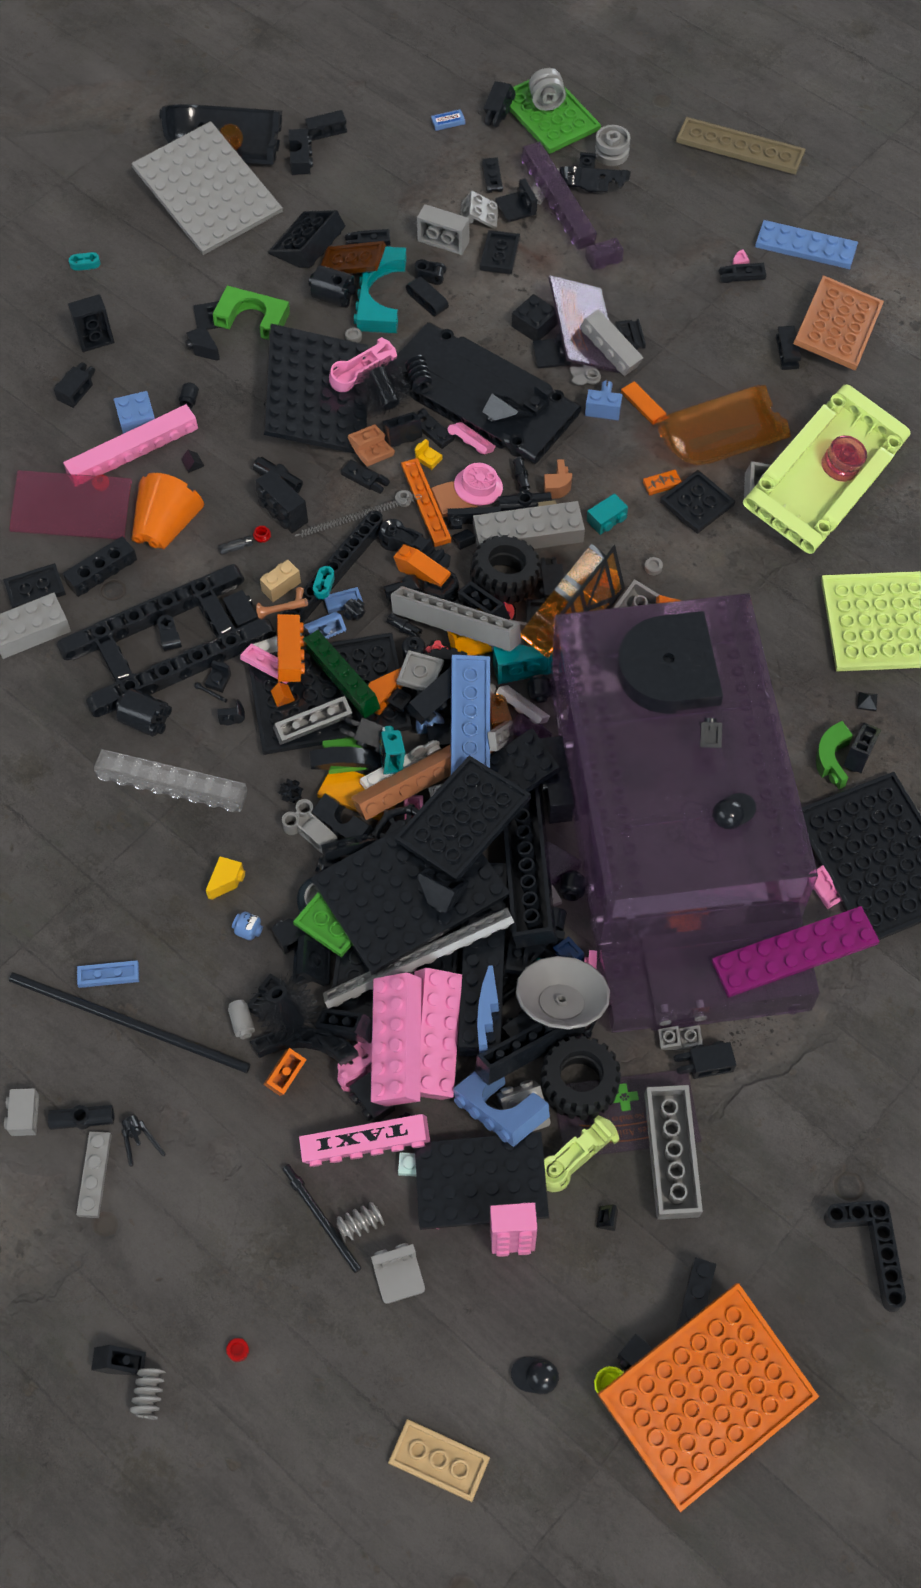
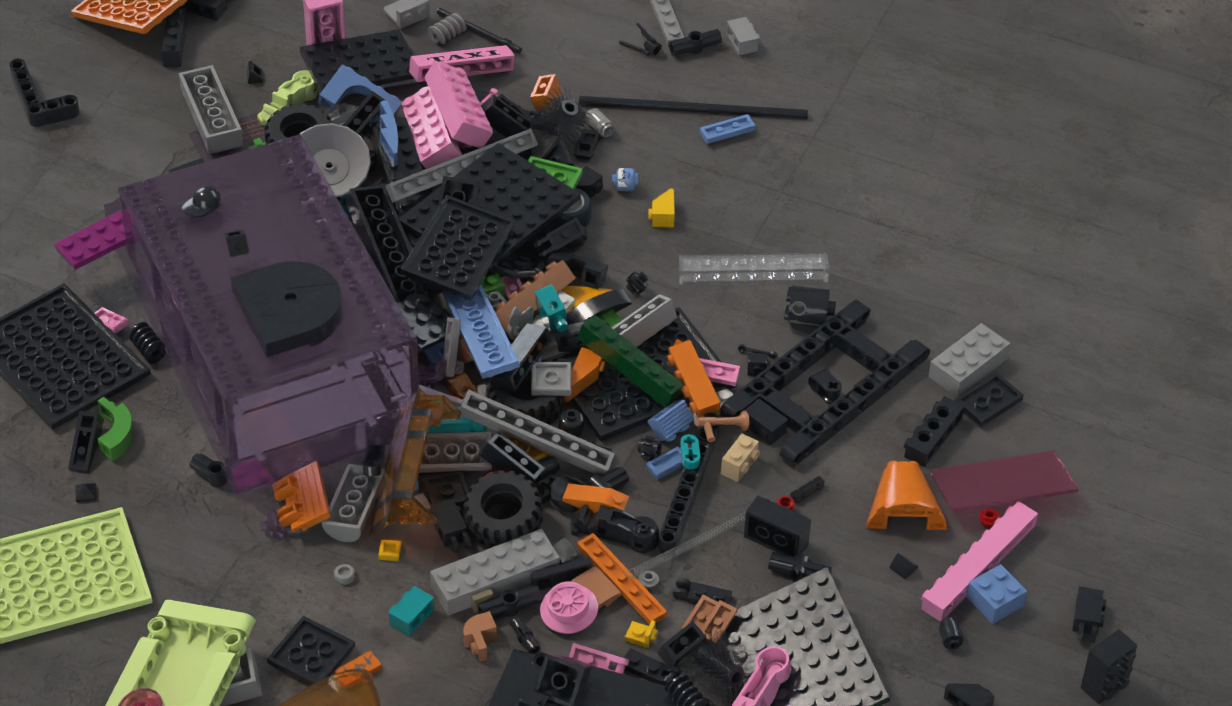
camera: 160 degrees right, 15 degrees down
(231, 716) = (725, 331): black plate -> none
(307, 825) = (618, 262): light grey piece -> none

